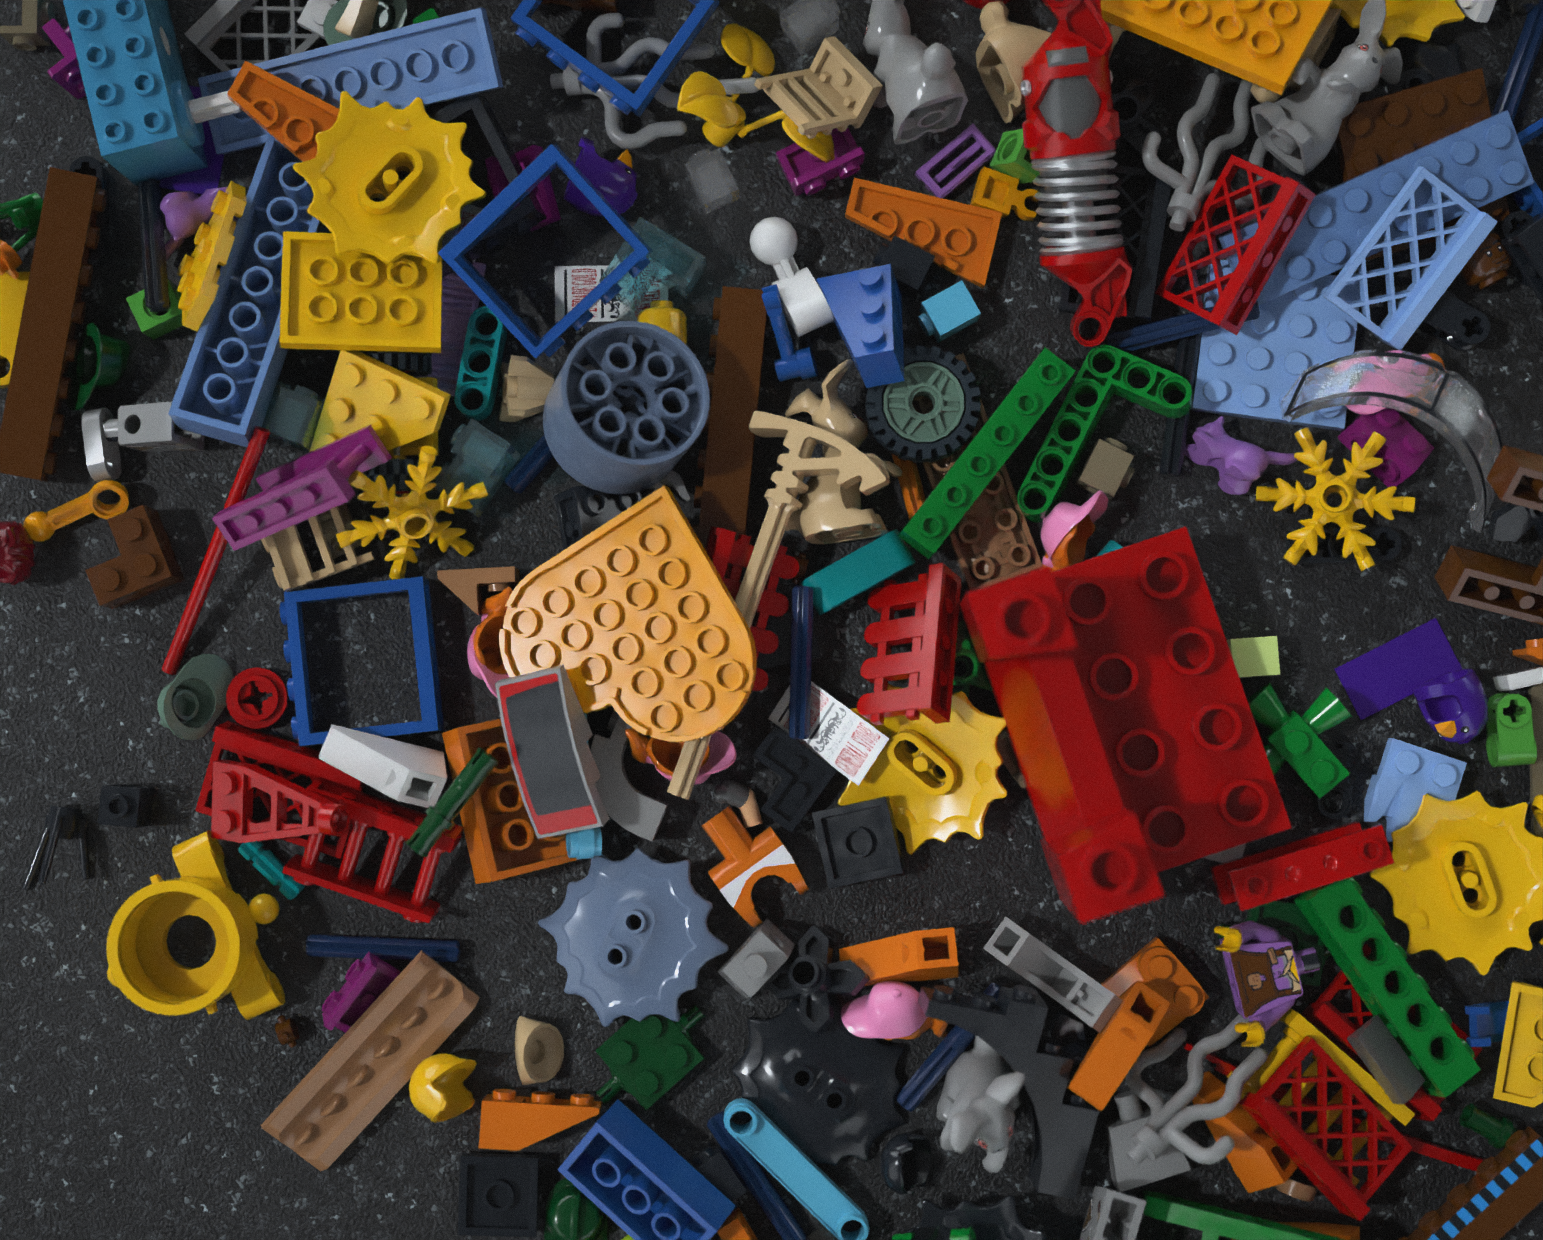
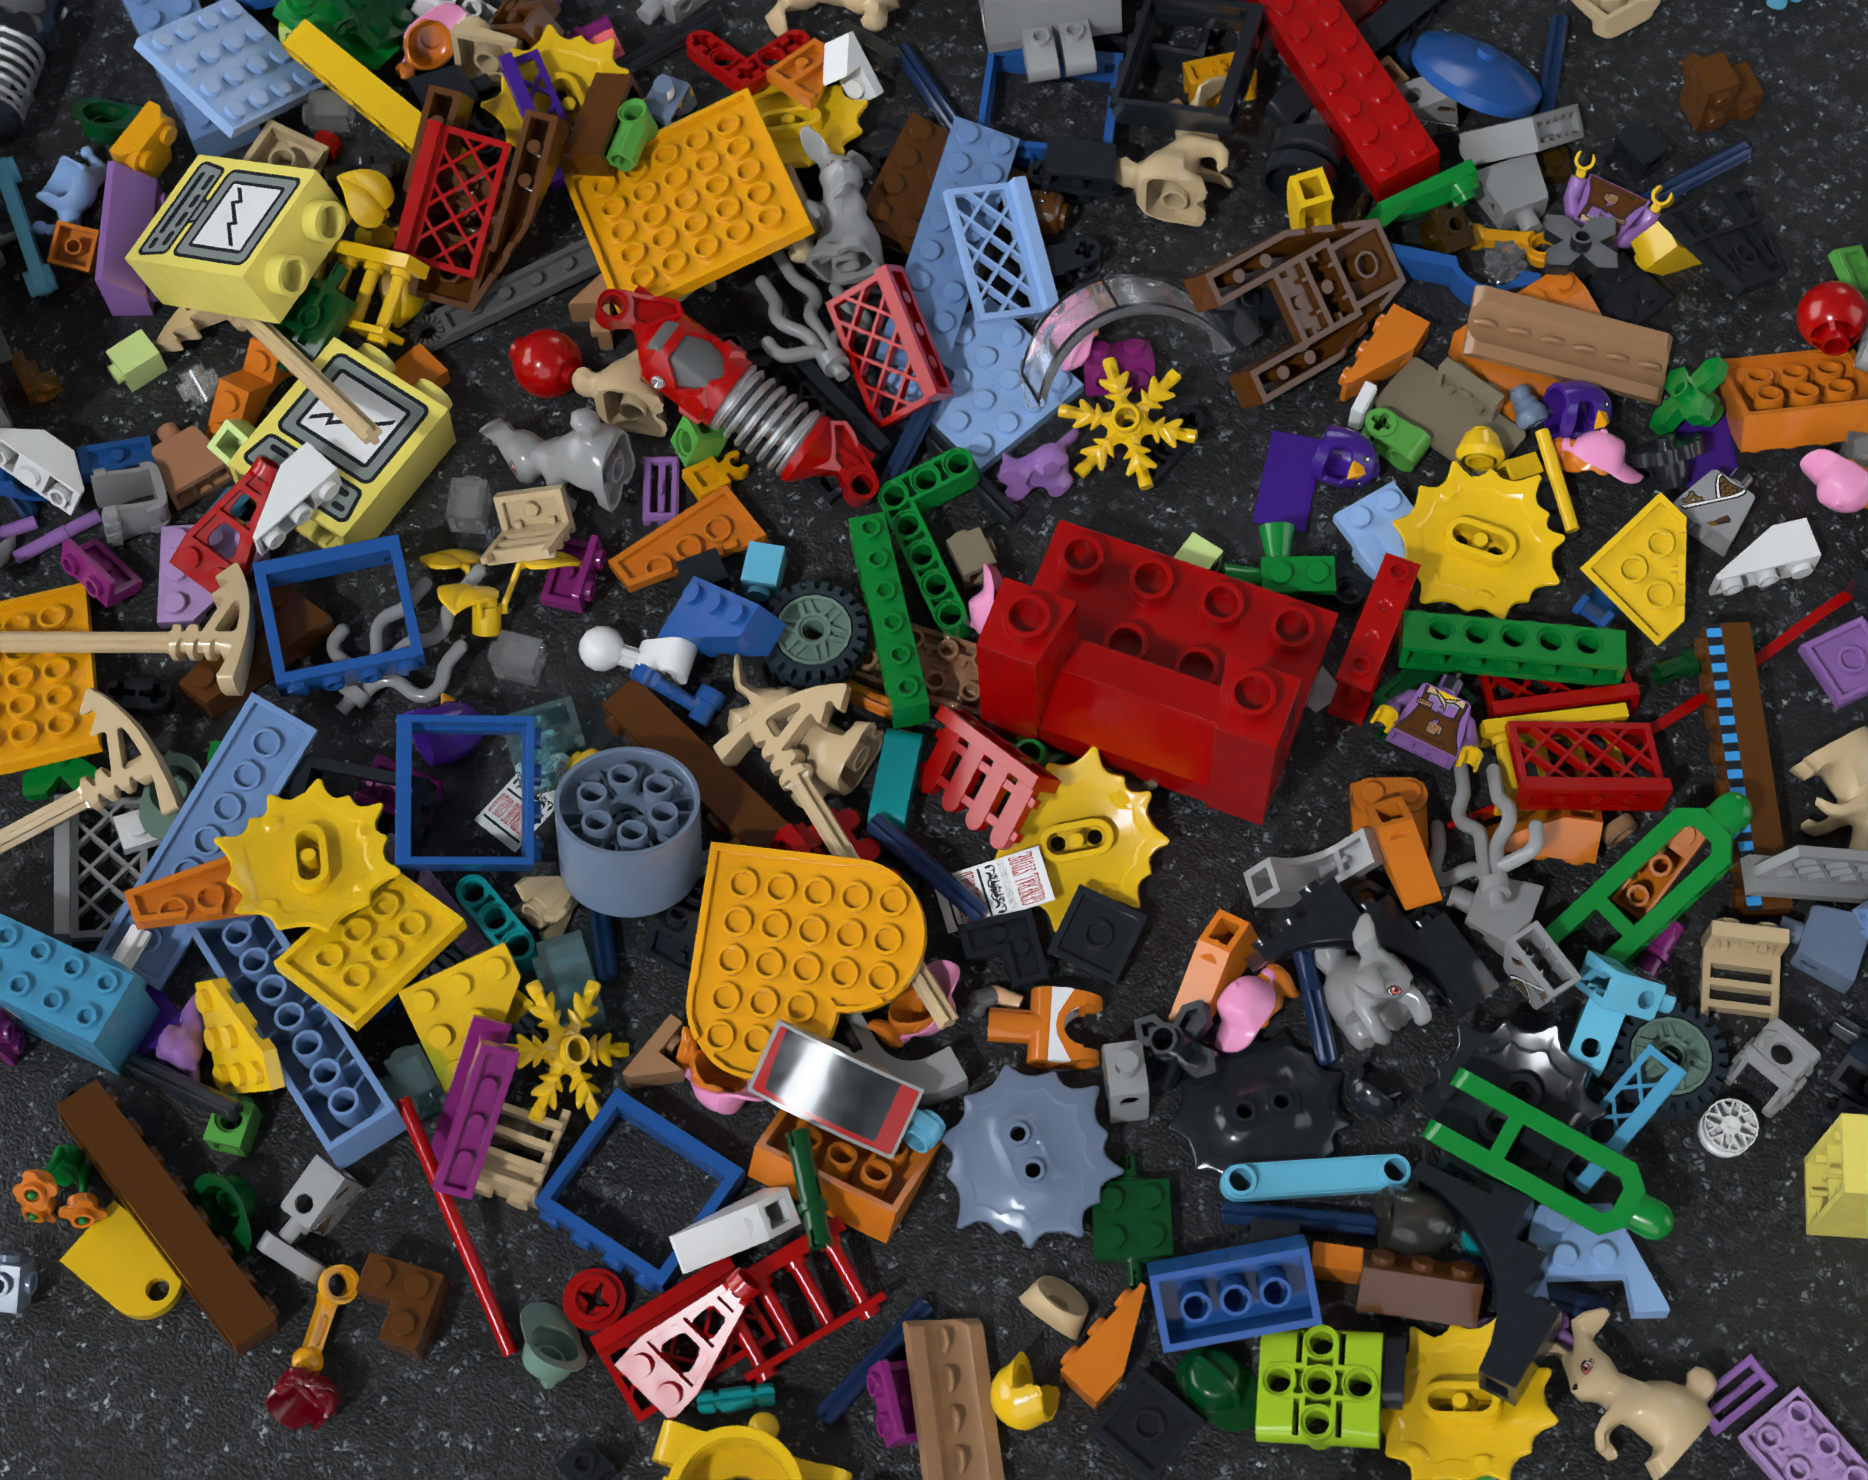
camera: 50 degrees left, 20 degrees down
(1386, 1060) = (1568, 690): dark grey slope -> none

